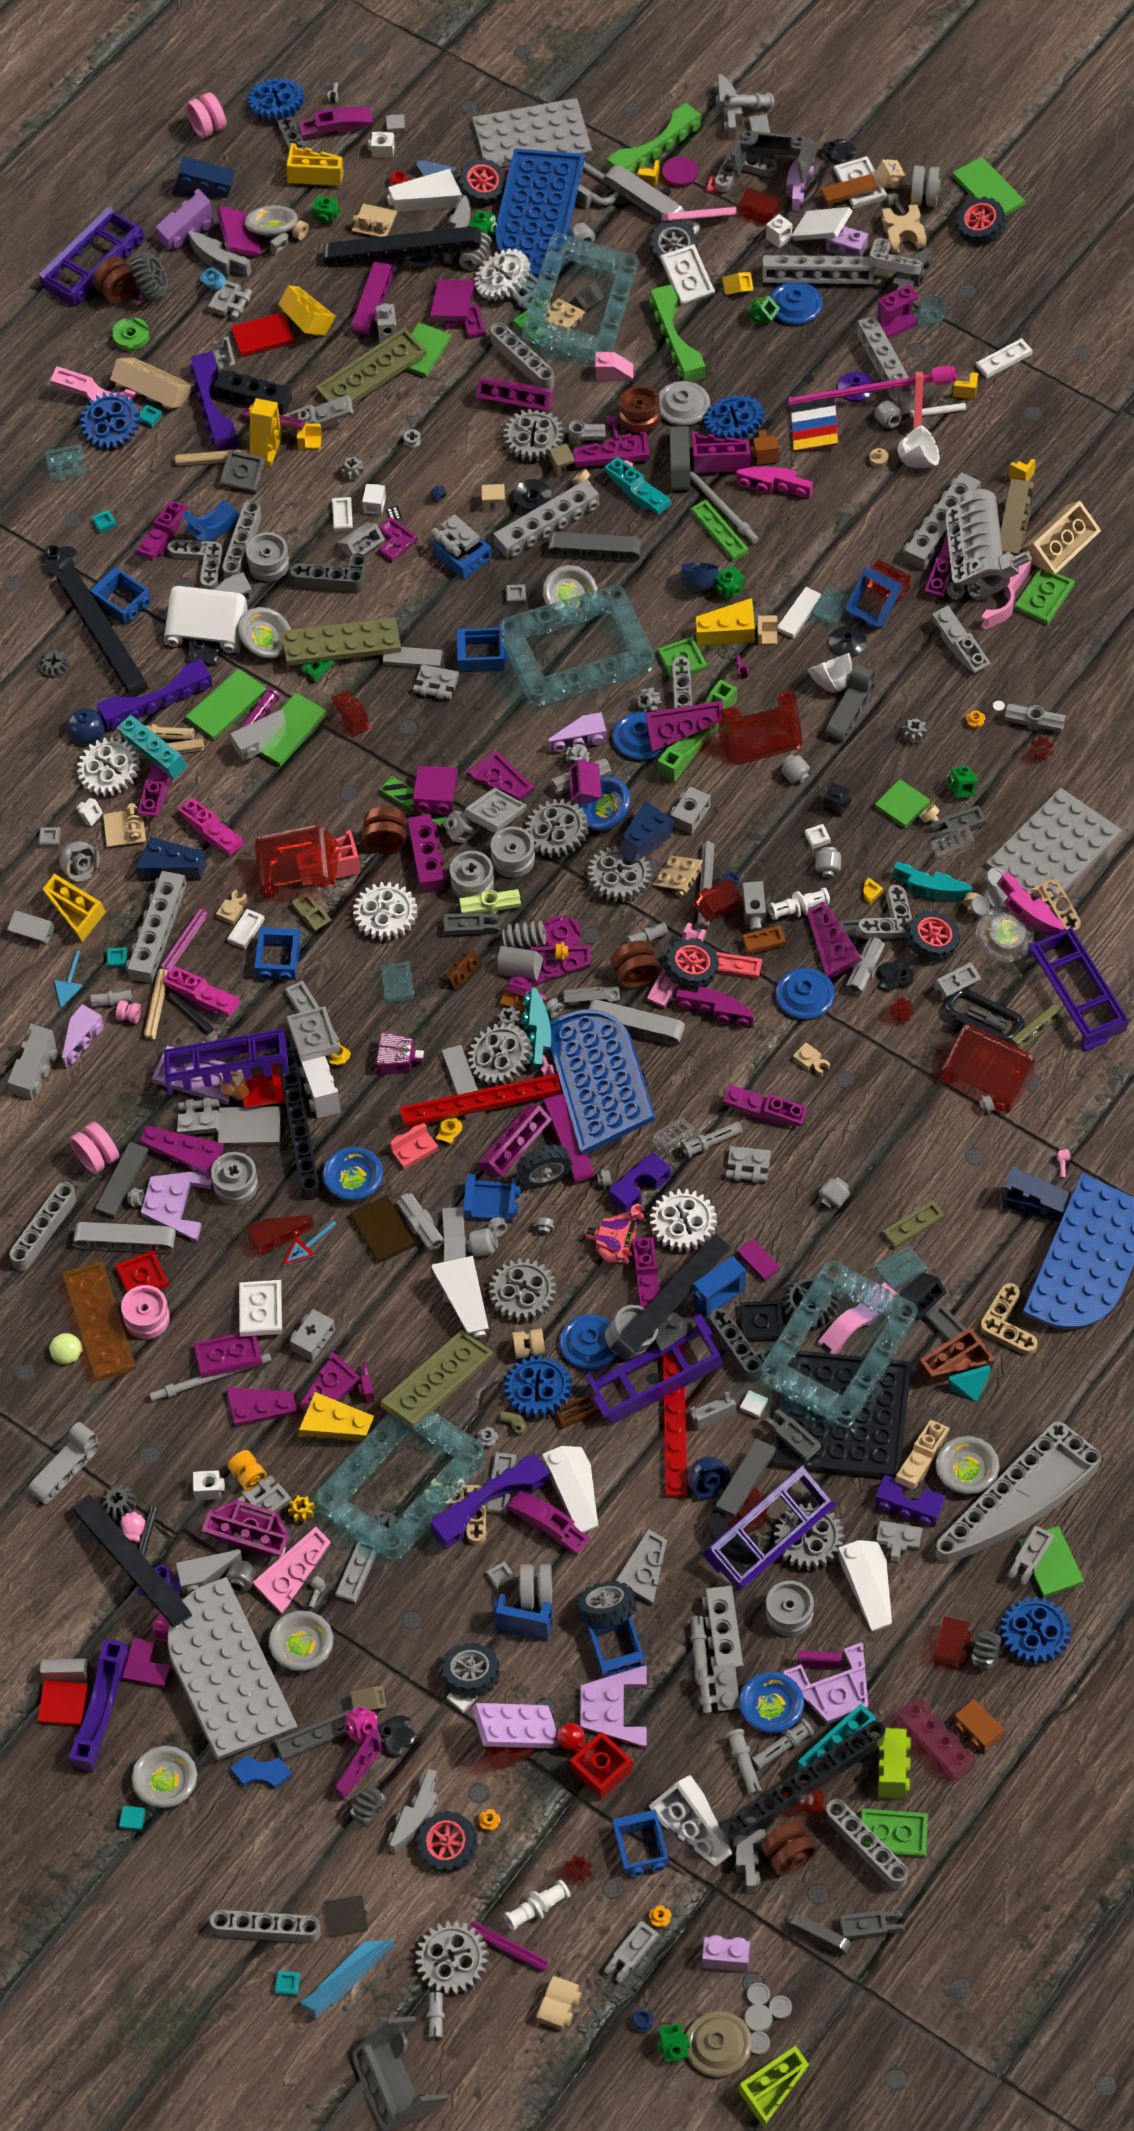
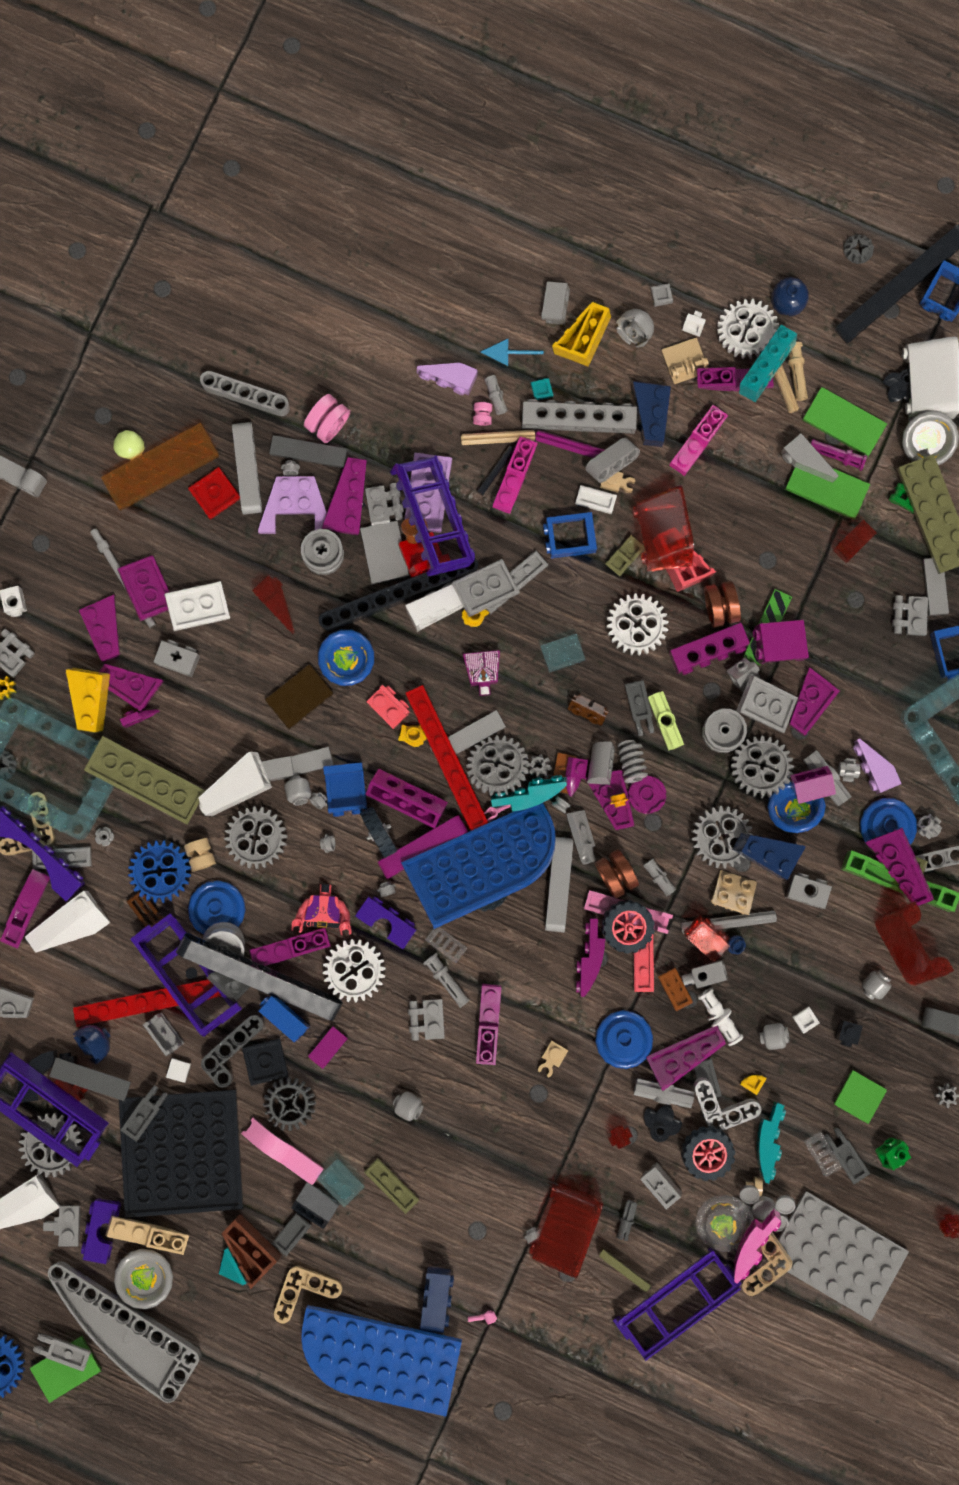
camera: 75 degrees right, 25 degrees up
(34, 1062) = (408, 342): light grey wedge -> none
(145, 1312) = (160, 505): bright pink wheel -> none
(191, 680) = (863, 381): dark purple arch -> none
(210, 902) = (612, 460): none -> light grey beam
(246, 1469) = (31, 631): light orange wheel -> none
(301, 1251) = (264, 628): piece -> none
(420, 1222) = (310, 729): light grey piece -> none
(471, 874) = (684, 707): light grey wheel -> none
(516, 1421) = (124, 859): olive arm -> none
(813, 1394) = (252, 1104): clear light blue beam -> none
(929, 814) = (851, 1126): tan tile -> none
(961, 1019) = (612, 1212): black bar -> none

